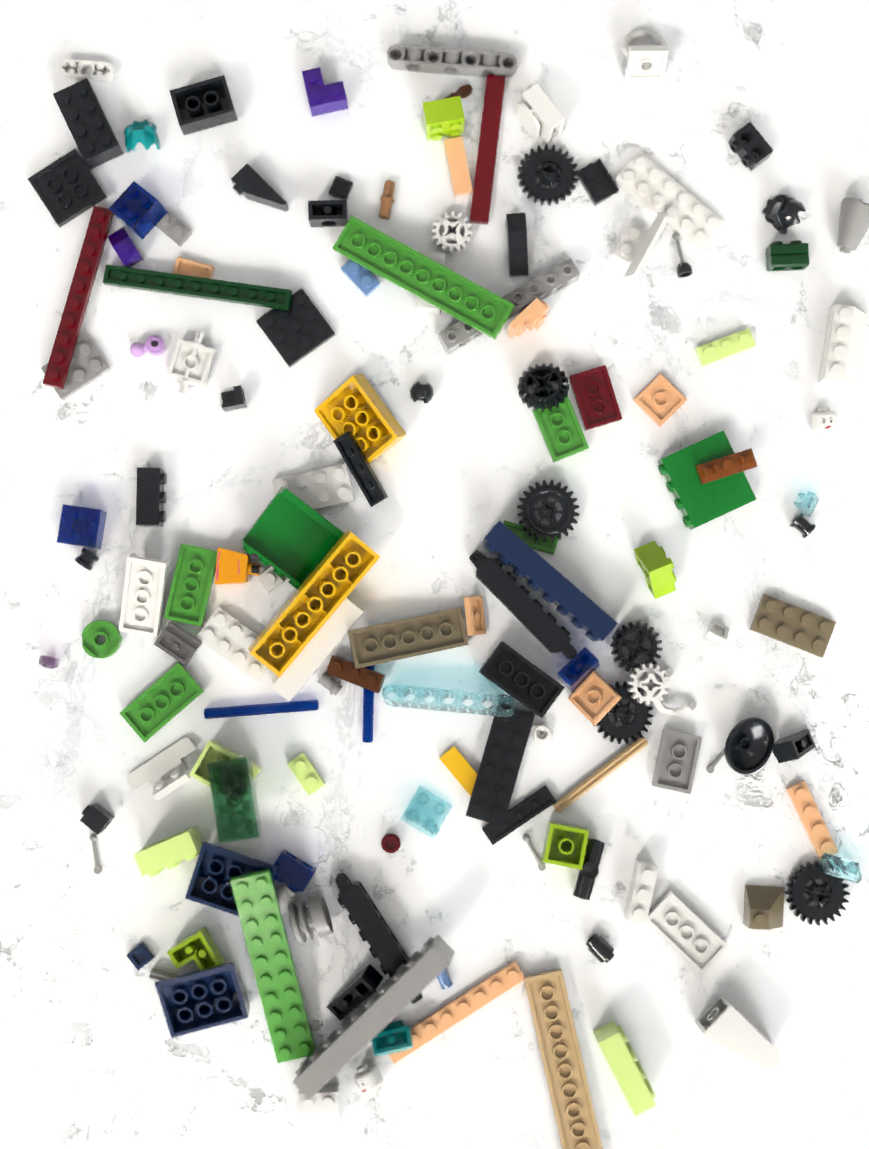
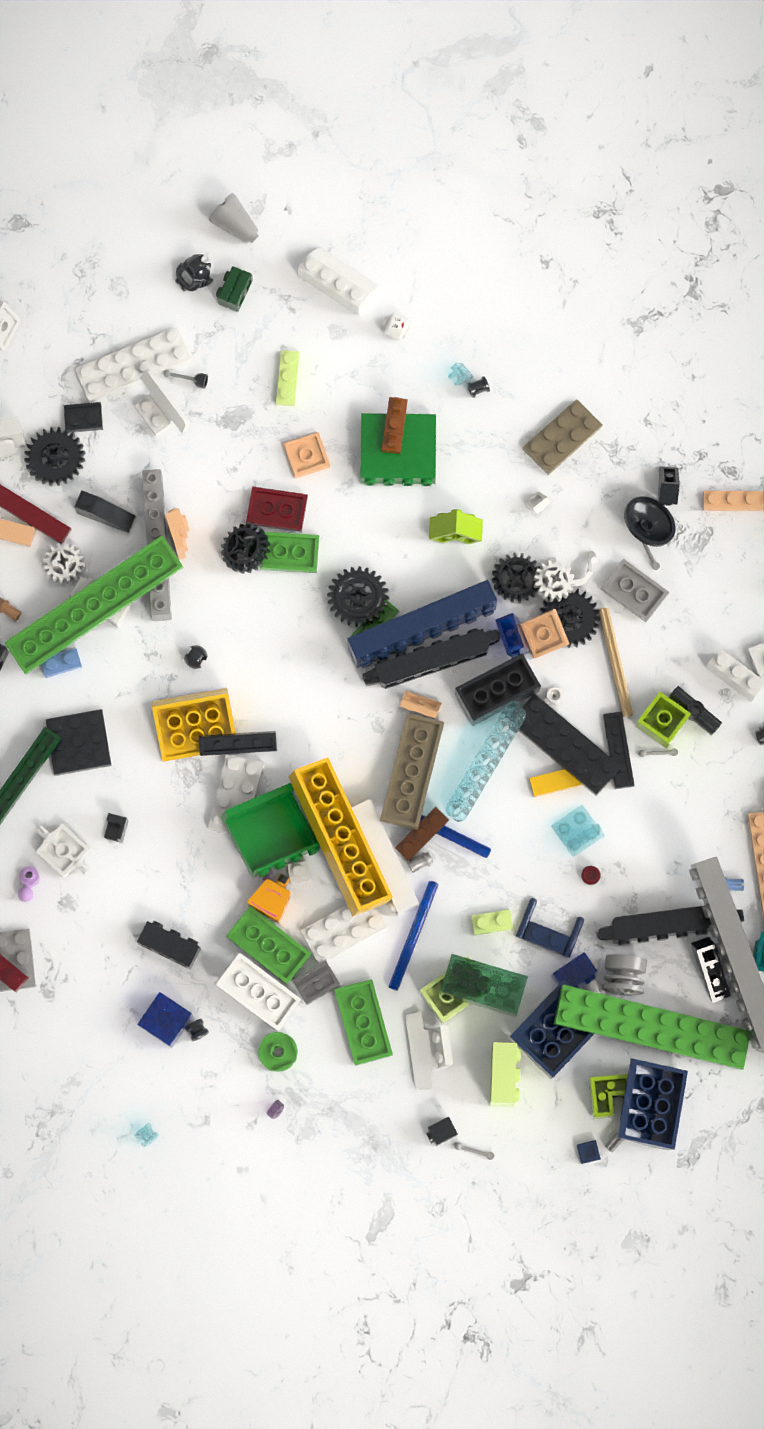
camera: 60 degrees left, 10 degrees down
(315, 828) = (546, 937): none -> dark blue plate
(755, 144) = (120, 268): black brick -> none

